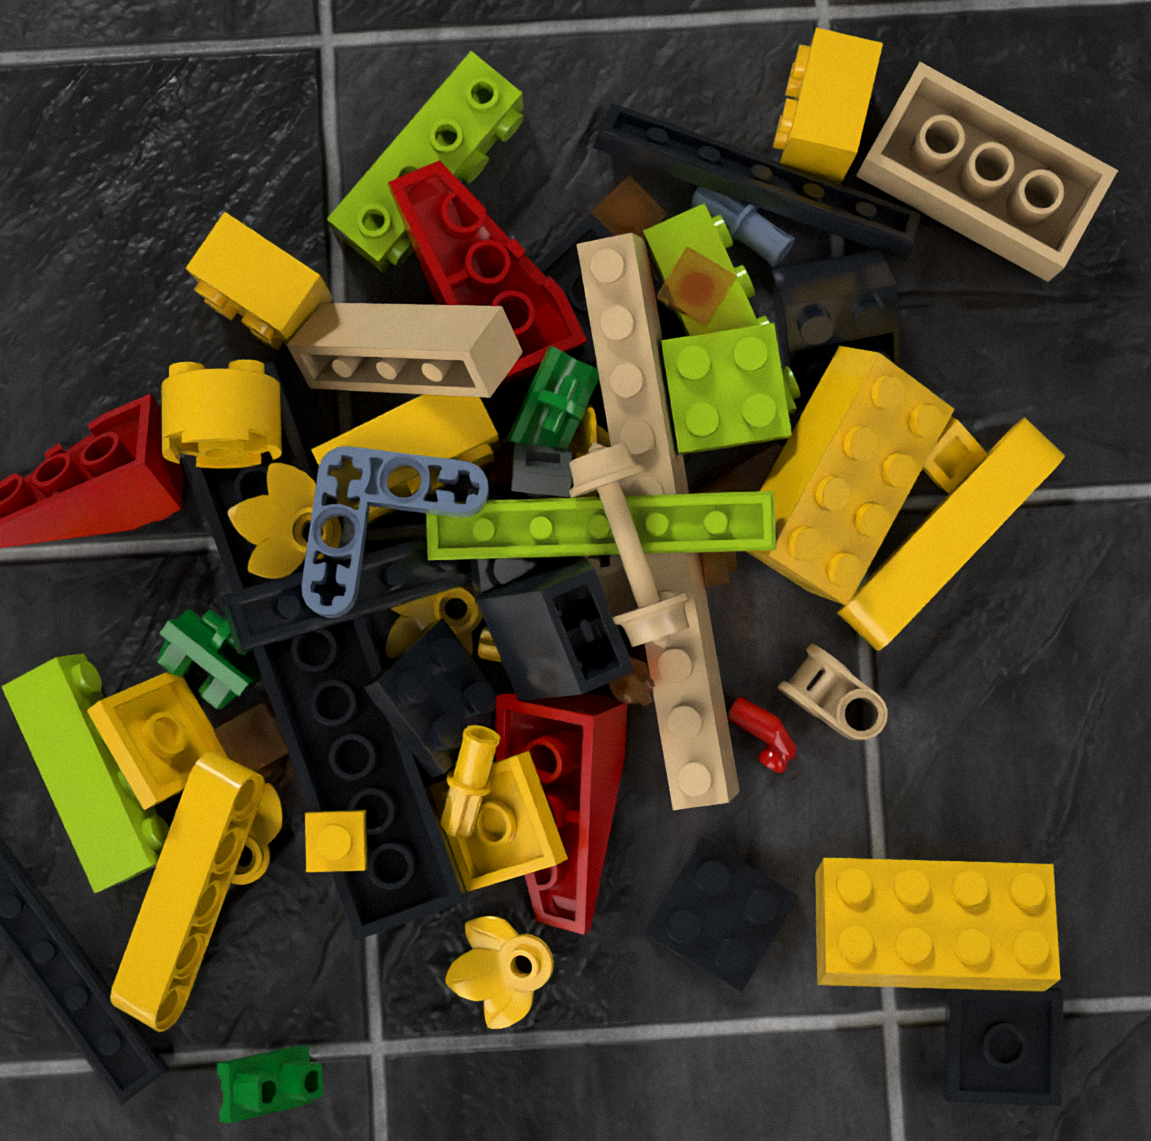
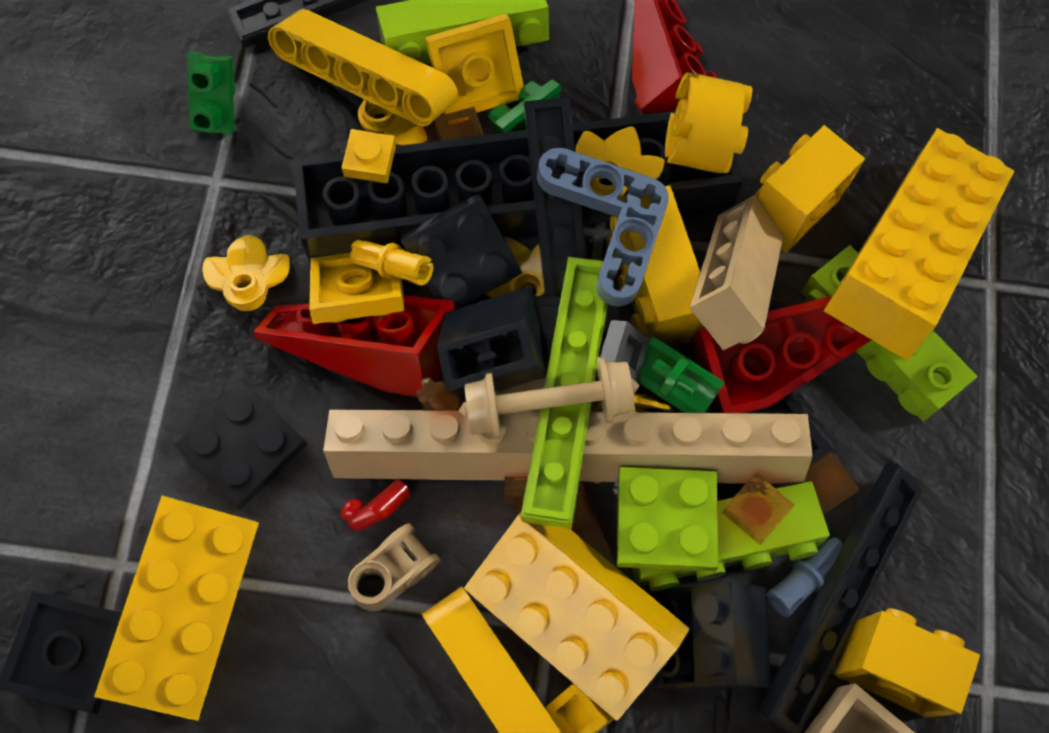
camera: 100 degrees right, 15 degrees down
(317, 130) = (921, 245): none -> yellow brick

